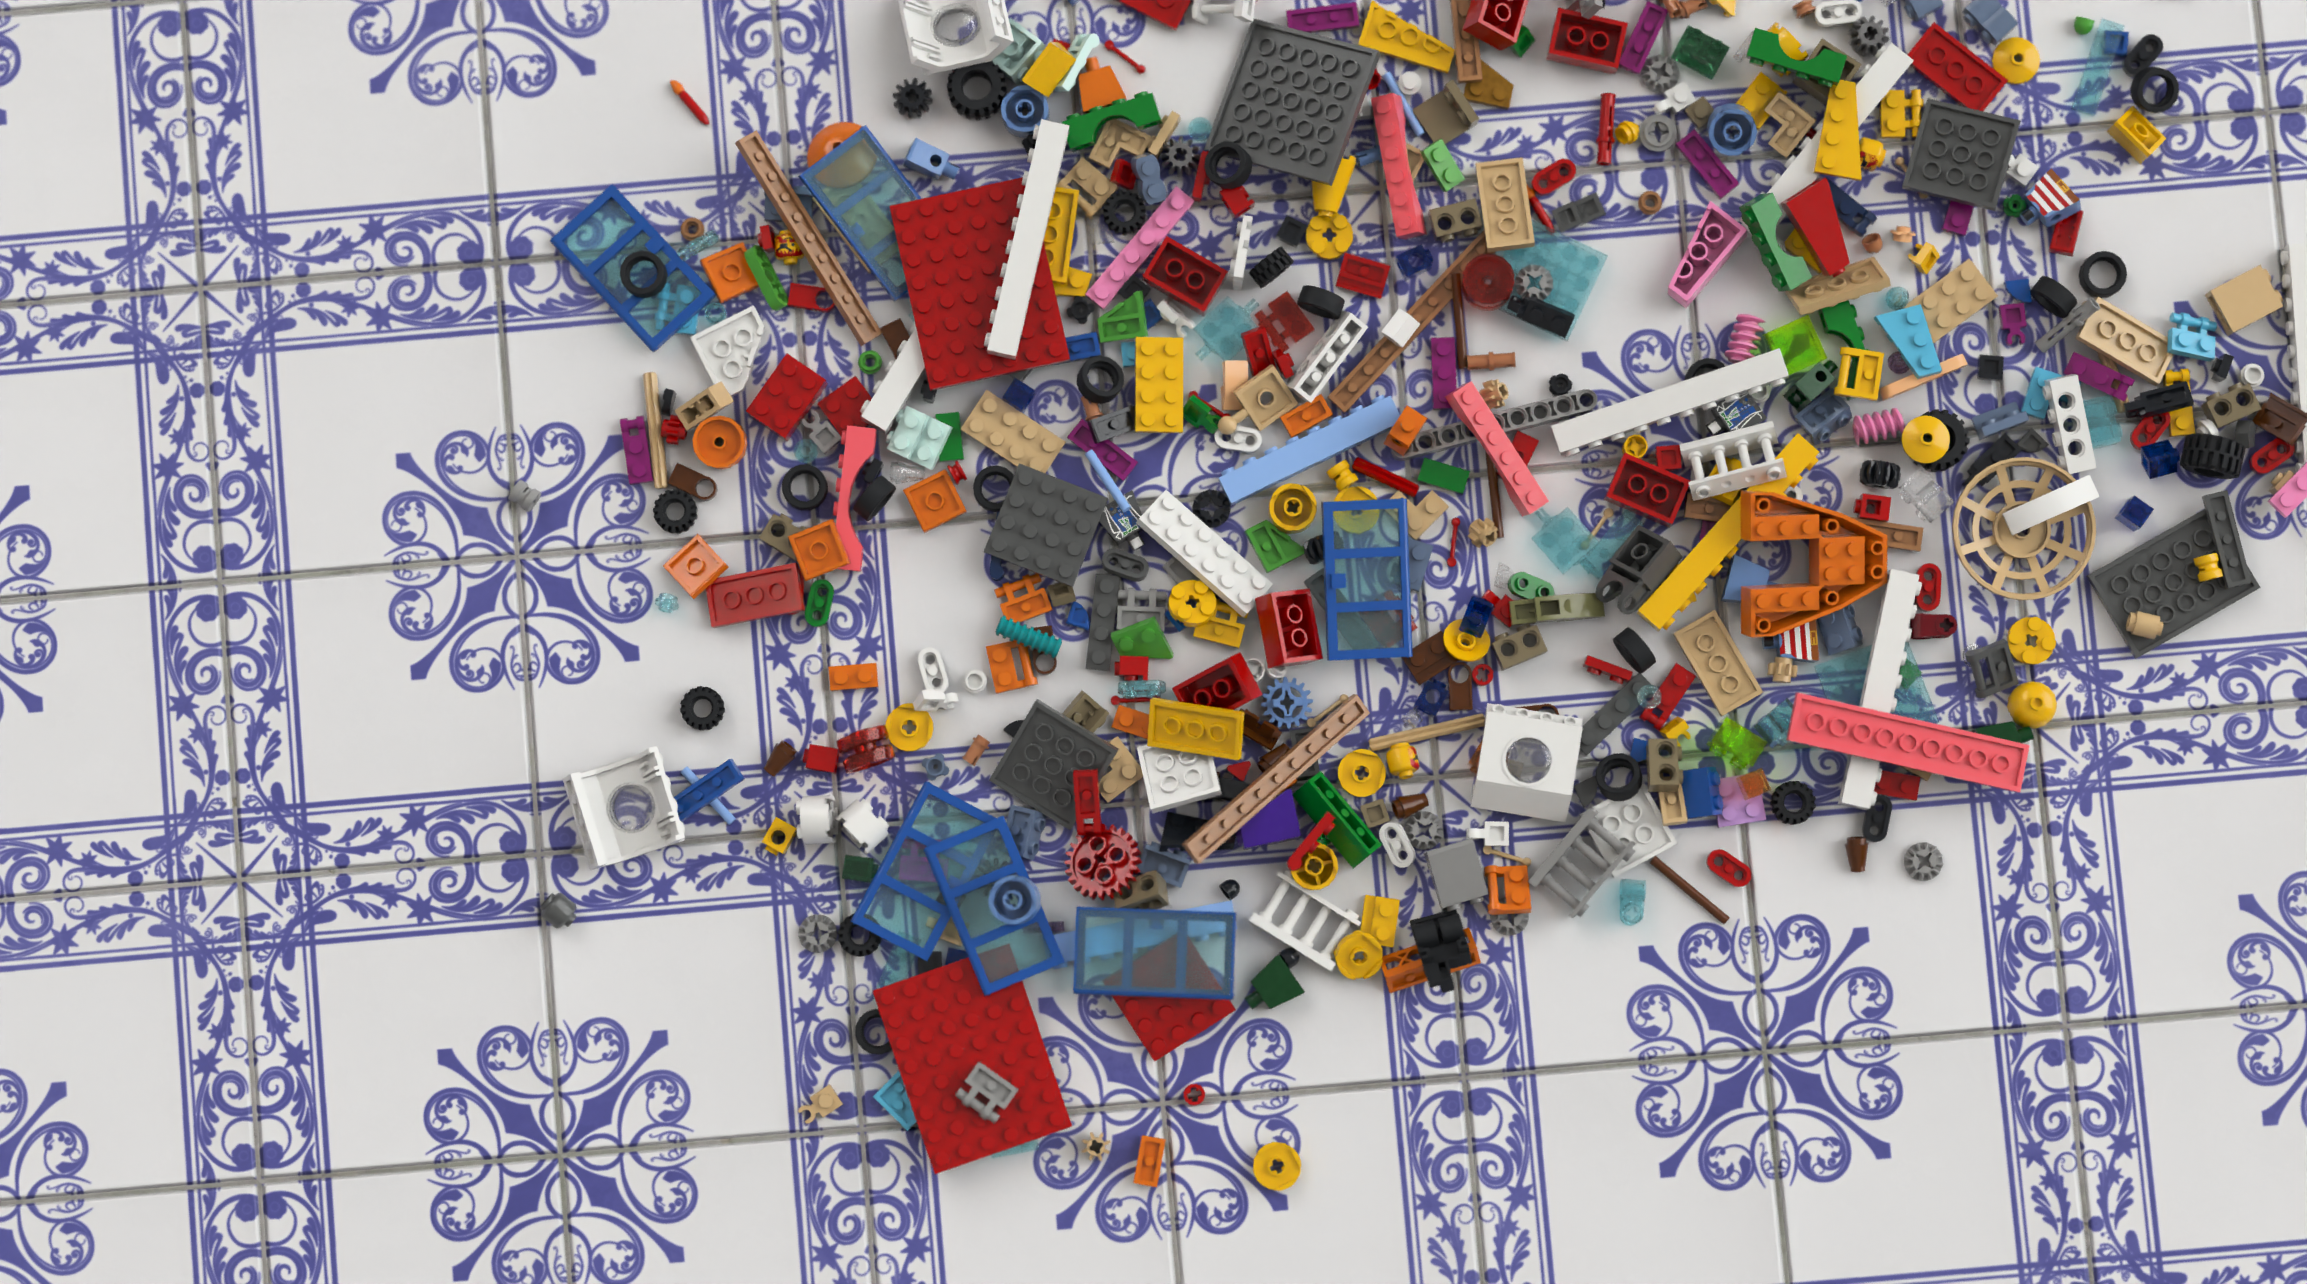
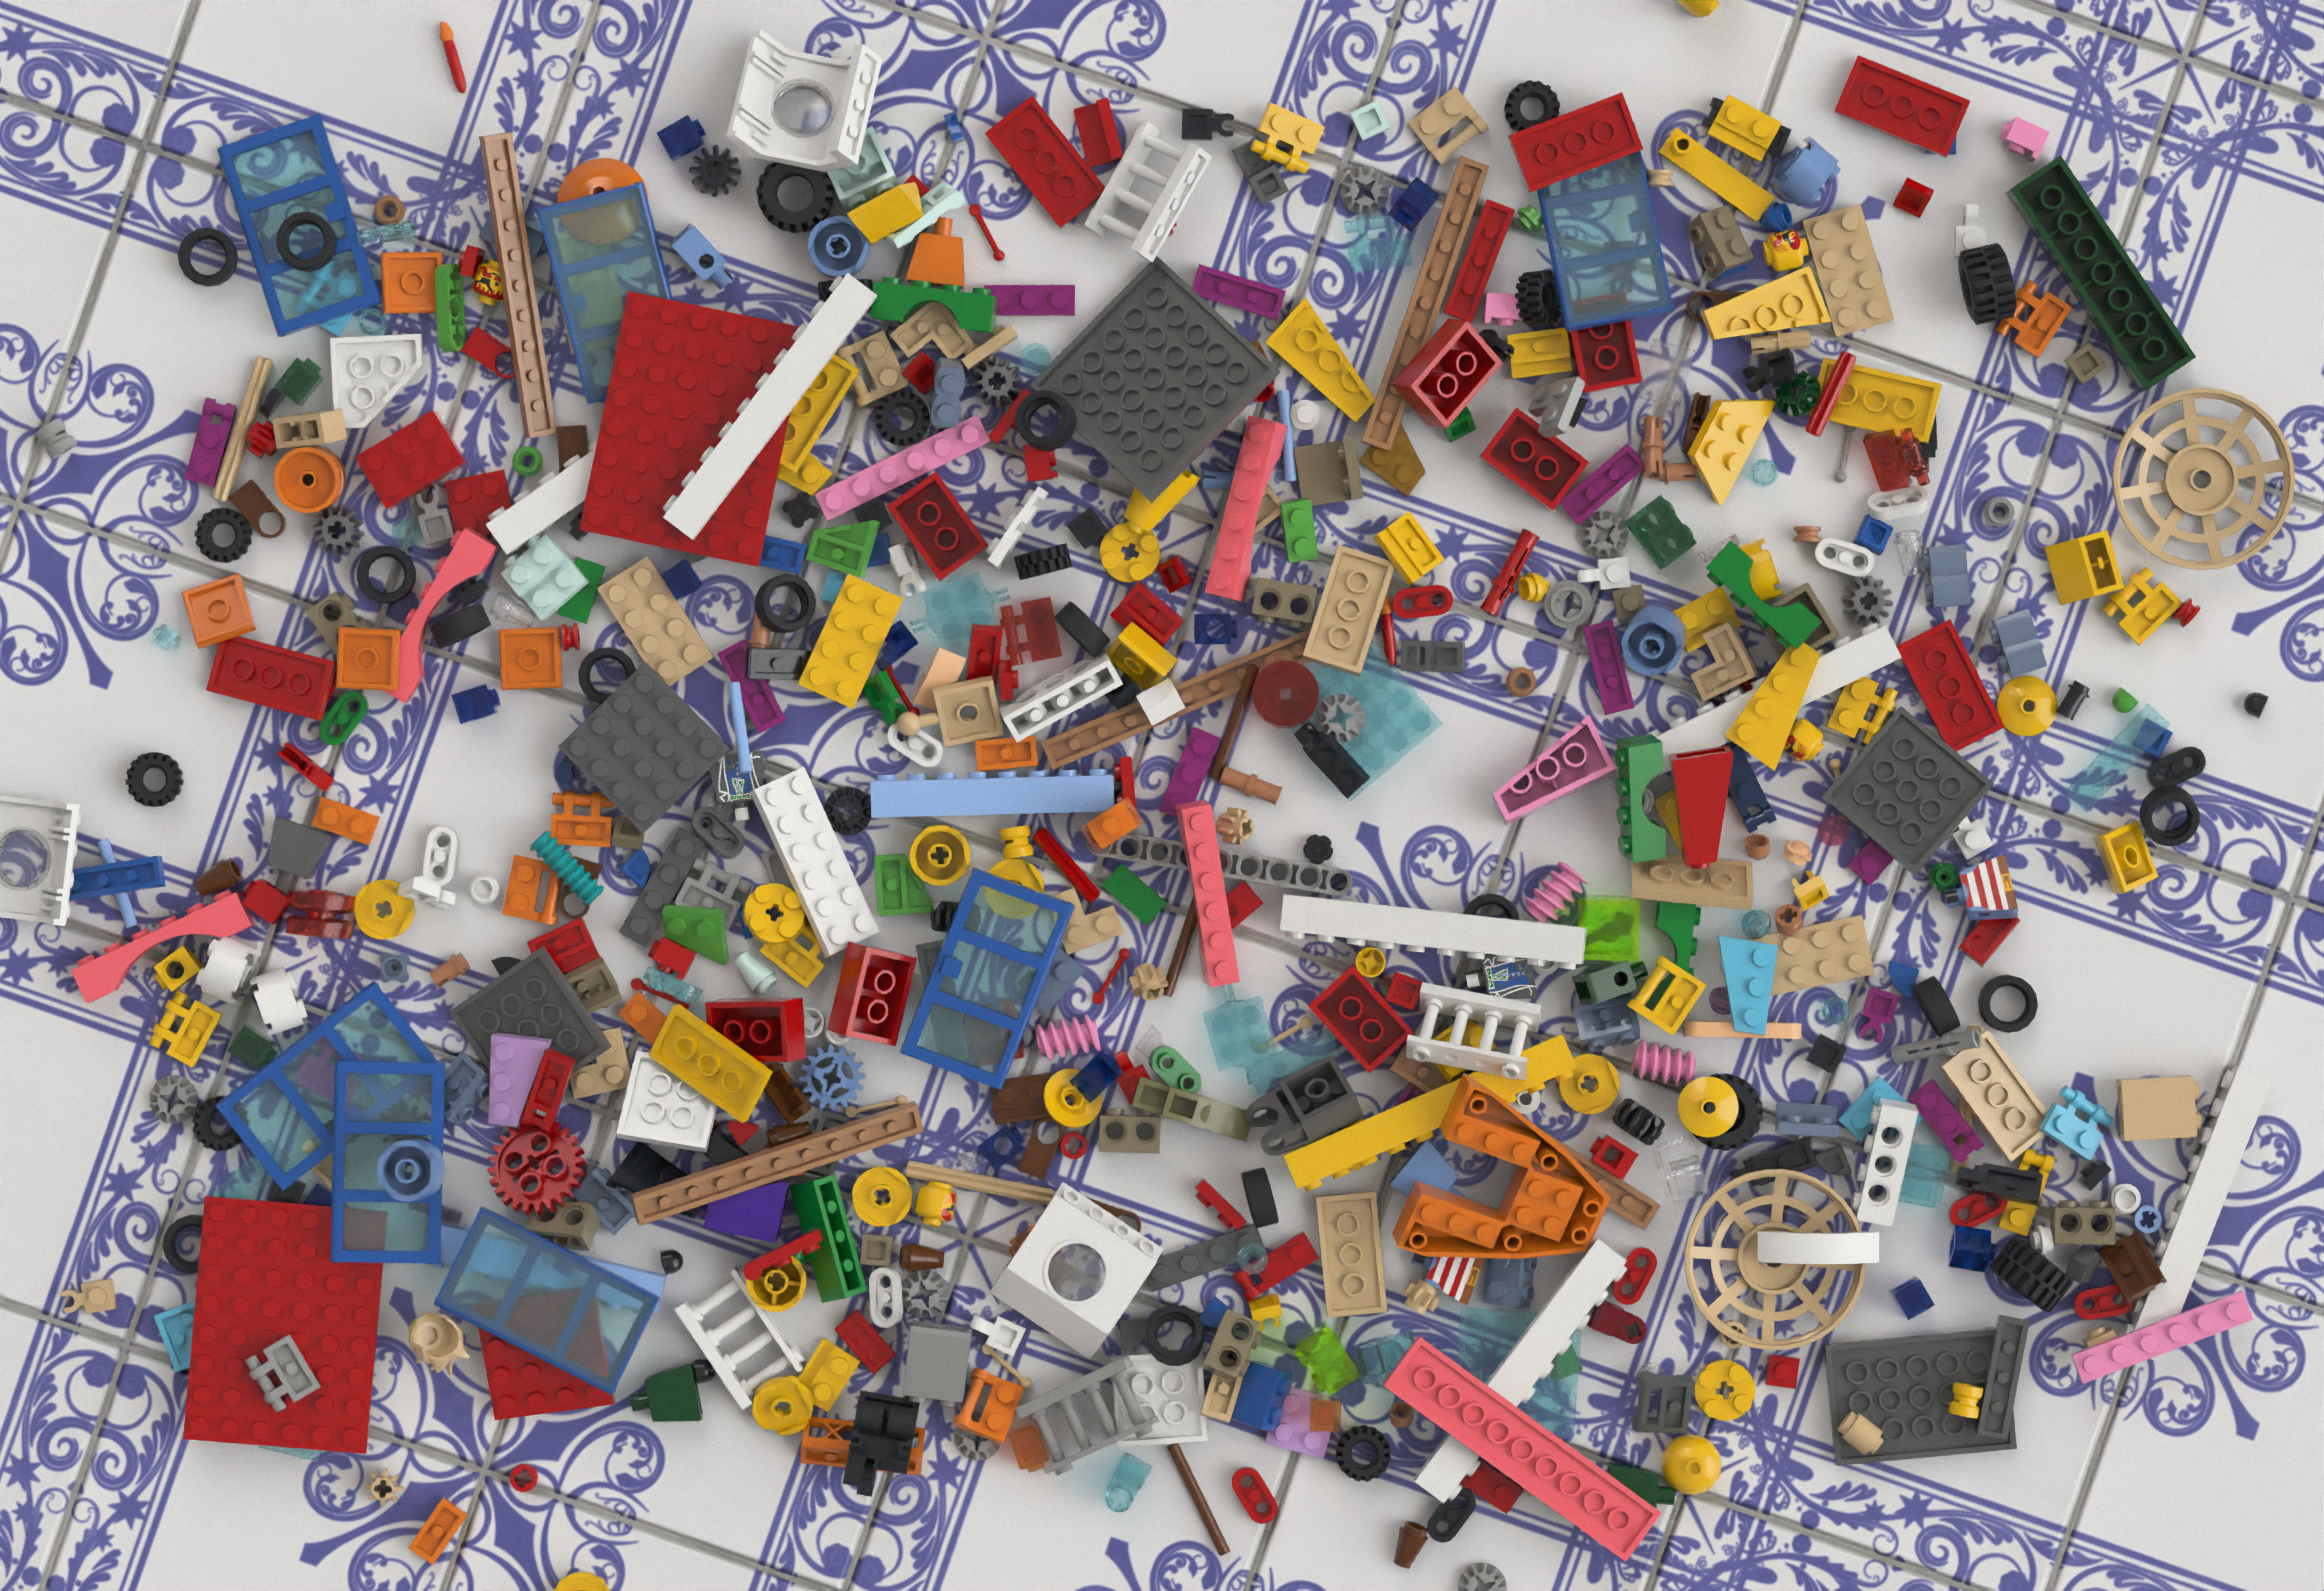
camera: 20 degrees right, 5 degrees up
(567, 304) = (203, 234): none -> black tyre
(682, 376) = (300, 380): none -> clear green brick
(728, 863) = (106, 973): none -> coral arch
(763, 474) = (333, 521): none -> flat silver gear
(808, 649) = (306, 766): none -> red piece
(811, 877) = (193, 1033): none -> yellow plate
(827, 713) = (296, 851): none -> dark grey torso
(878, 85) = (682, 137): none -> clear blue brick
(910, 550) = (476, 703): none -> clear blue brick
(1054, 692) = (568, 945): none -> red plate
(1056, 803) = (512, 1075): none -> lavender wing
(1087, 1020) = (437, 1341): none -> tan hair
(1182, 88) = (1034, 300): none -> magenta plate
(1193, 372) = (899, 643): none -> clear blue bracket
(1198, 654) = (757, 975): none -> light aqua cone
(1367, 237) = (1174, 574): none -> red slope
(1370, 336) = (1123, 694): none -> black plate
(1371, 305) = (1140, 657): none -> yellow slope
(1397, 883) = (865, 1341): none -> red plate
(1399, 393) = (1124, 774): none -> red plate
(1442, 598) = (1067, 1037): none -> bright pink piece
(1527, 143) = (1409, 548): none -> yellow plate
(1550, 906) = (1029, 1448): none -> clear orange brick
(1804, 758) = (1401, 1407): none -> nougat hinge
(1845, 465) = (1604, 1091): none -> yellow plate
(1916, 279) = (1784, 912): none -> nougat bush
(1920, 208) = (1833, 831): none -> clear pink tile
(1976, 329) = (1832, 1001): none -> clear light blue bush
(2016, 606) = (1727, 1342): none -> tan bush
(2047, 40) = (2073, 700): none -> black pin
(2065, 608) = (1782, 1371): none -> red plate
(2282, 382) = (2156, 1221): none -> light blue bush

